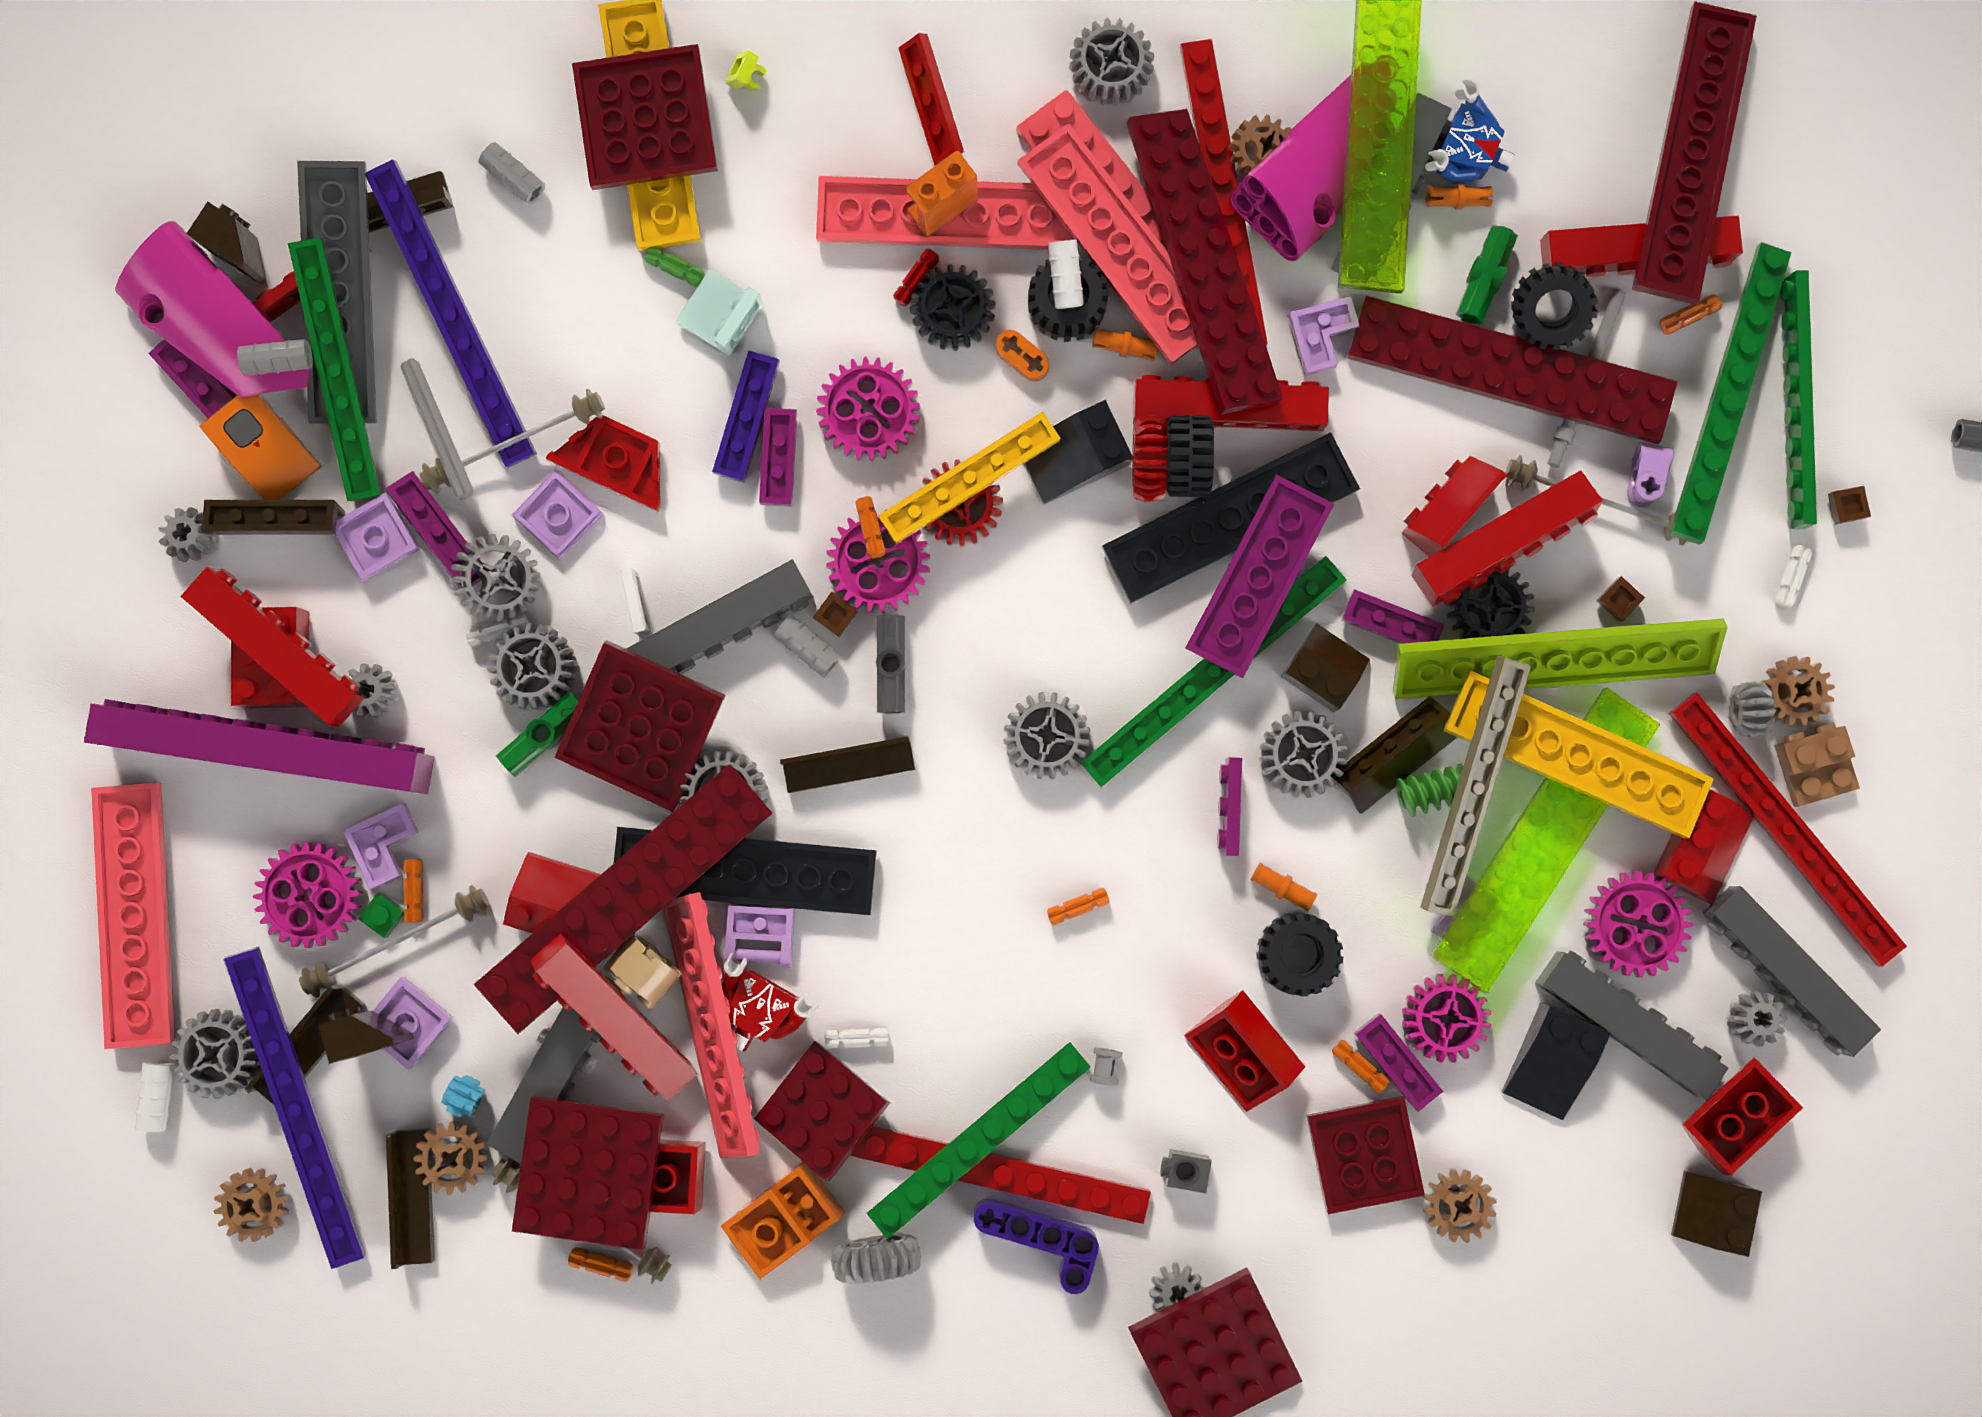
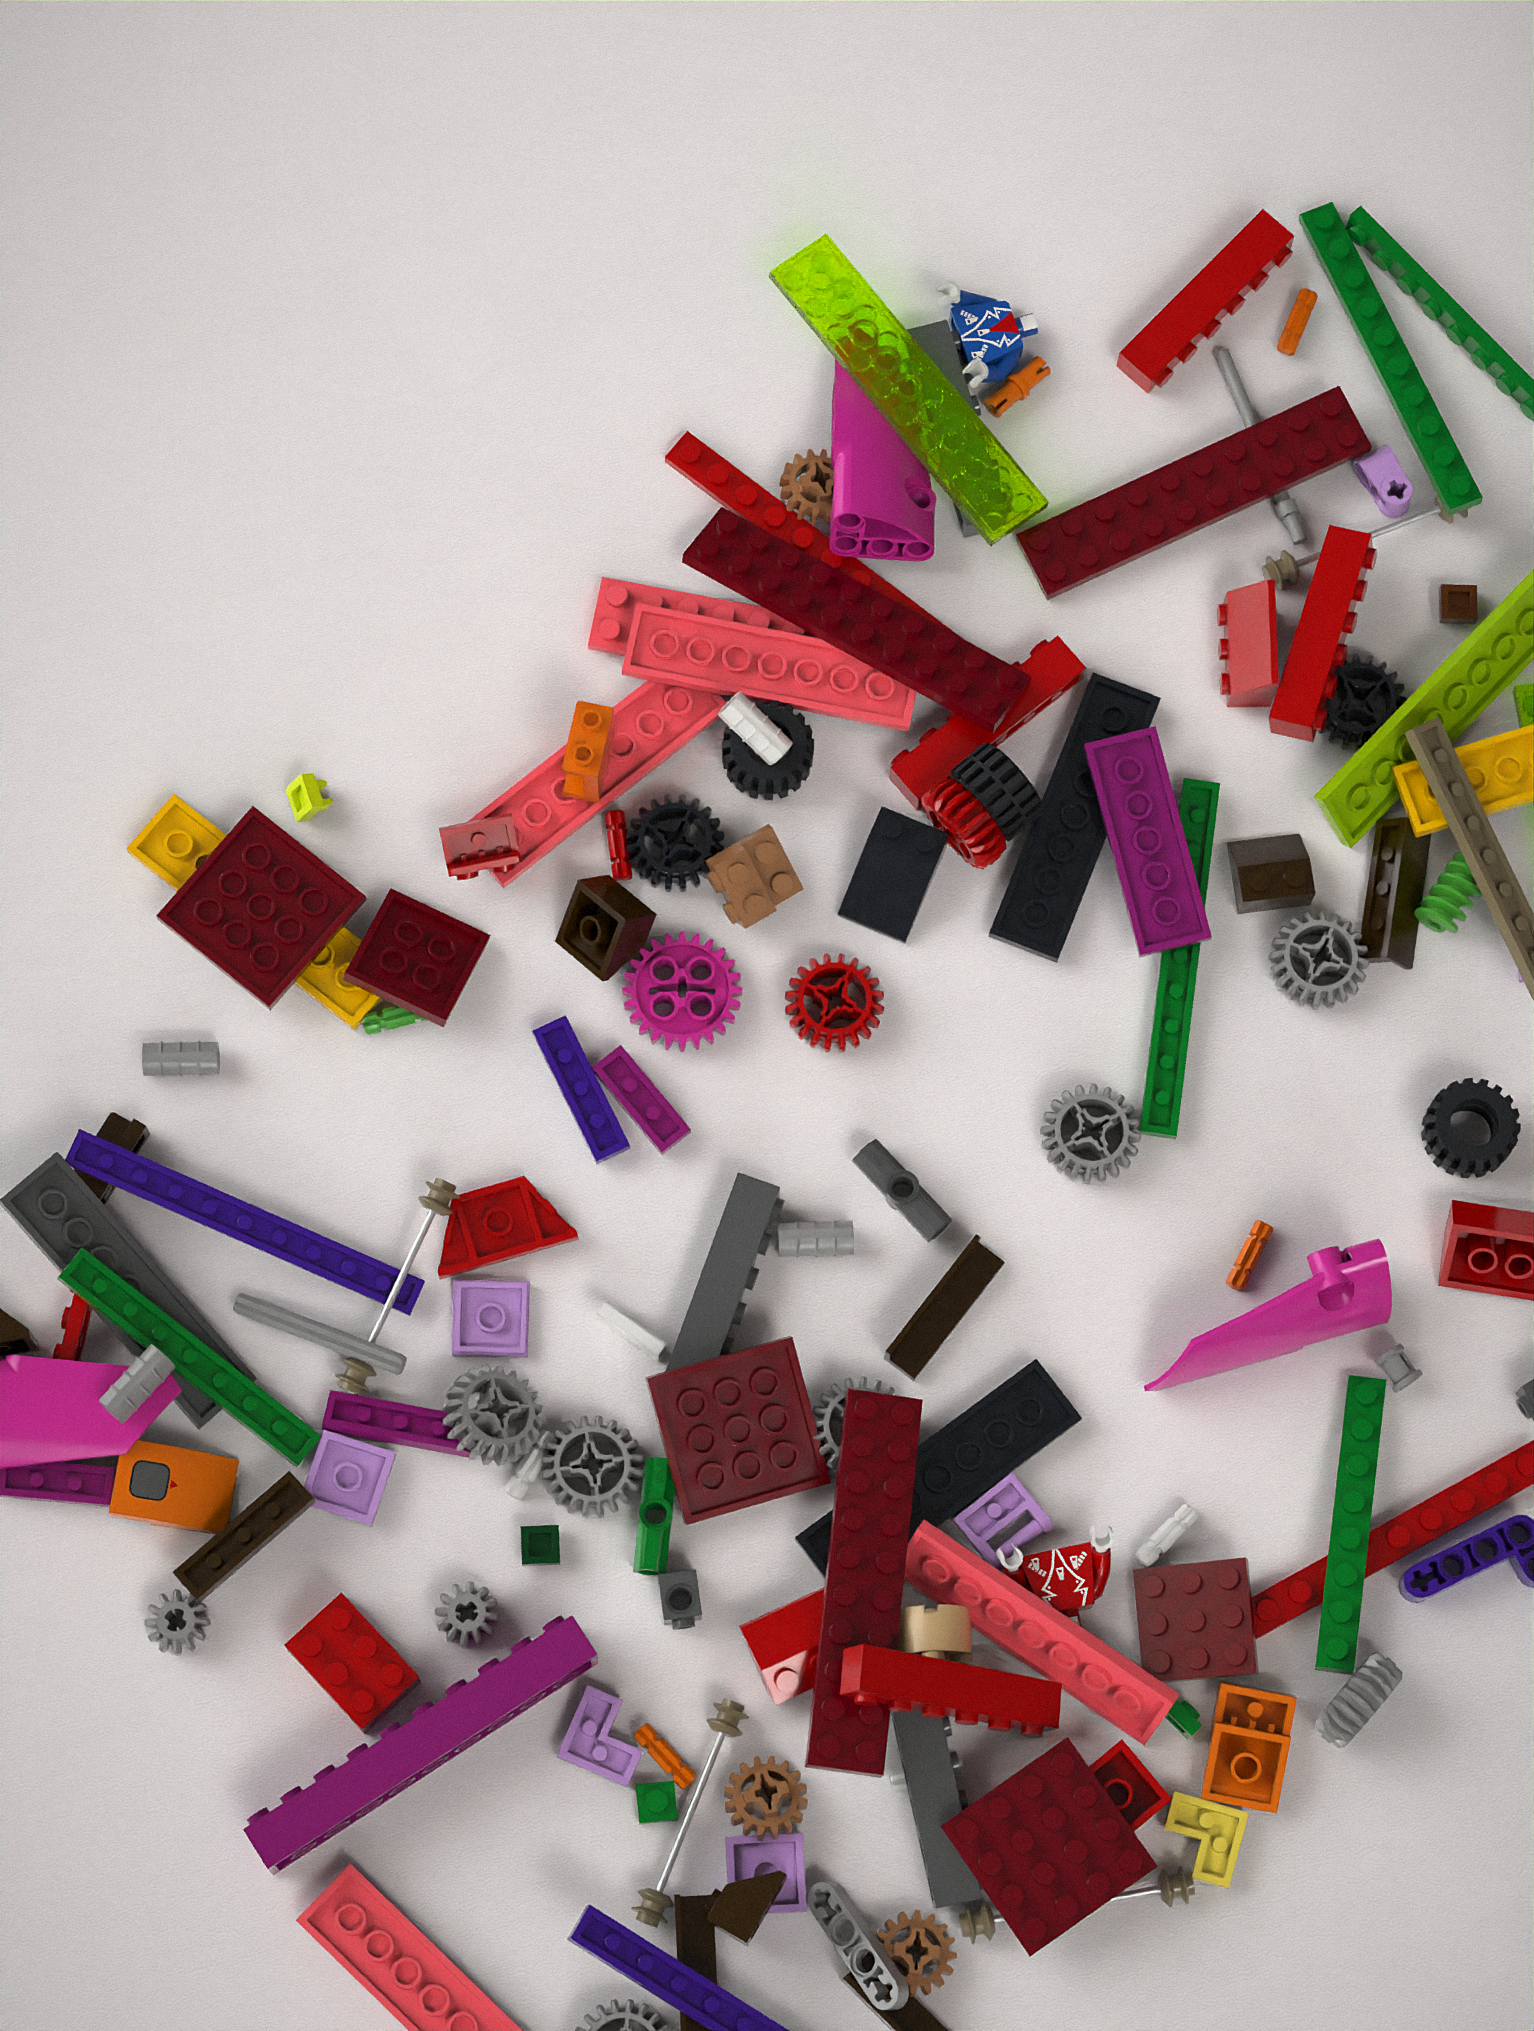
camera: 45 degrees left, 10 degrees down
(272, 646) = (359, 1636): red brick -> none
(283, 911) = (587, 1806): dark pink gear -> none
(420, 1122) = (853, 1950): none -> light grey beam
(435, 968) = (751, 1803): none -> medium nougat gear
(455, 687) = (540, 1545): none -> dark green plate
(463, 1096) = (875, 1890): medium azure gear -> none
(524, 798) = (680, 1582): none -> dark grey brick
(600, 1264) = (1127, 1930): orange axle -> none
(713, 1255) = (1216, 1828): none -> light yellow plate
(715, 237) = (416, 957): none -> dark red plate
(720, 312) = (479, 1023): light aqua bracket -> none
(758, 1166) = (1184, 1718): none -> green plate
(820, 198) = (480, 846): none -> red bracket
(835, 614) = (814, 1190): reddish brown plate -> none
(855, 321) = (604, 925): none -> dark brown slope
(870, 527) = (781, 1086): orange axle -> none
(888, 588) = (780, 1098): dark pink gear -> none
(930, 97) = (493, 683): red plate -> none
(969, 477) = (828, 970): yellow plate -> none
(980, 373) = (753, 877): none -> medium nougat plate
(1017, 361) = (778, 823): orange beam -> none
(1091, 46) = (606, 525): light grey gear -> none
(1107, 989) = (1343, 1296): none -> dark pink panel
(1124, 344) = (850, 748): orange pin -> none
(1230, 806) = (1299, 1057): magenta plate -> none
(1283, 887) = (1405, 1085): orange pin -> none
(1313, 330) = (998, 600): lavender plate -> none
(1390, 620) = (1285, 786): magenta plate -> none
(1486, 274) = (1100, 432): green piece -> none
(1569, 327) = (1209, 410): black tyre -> none
(1694, 153) = (1180, 188): dark red plate -> none

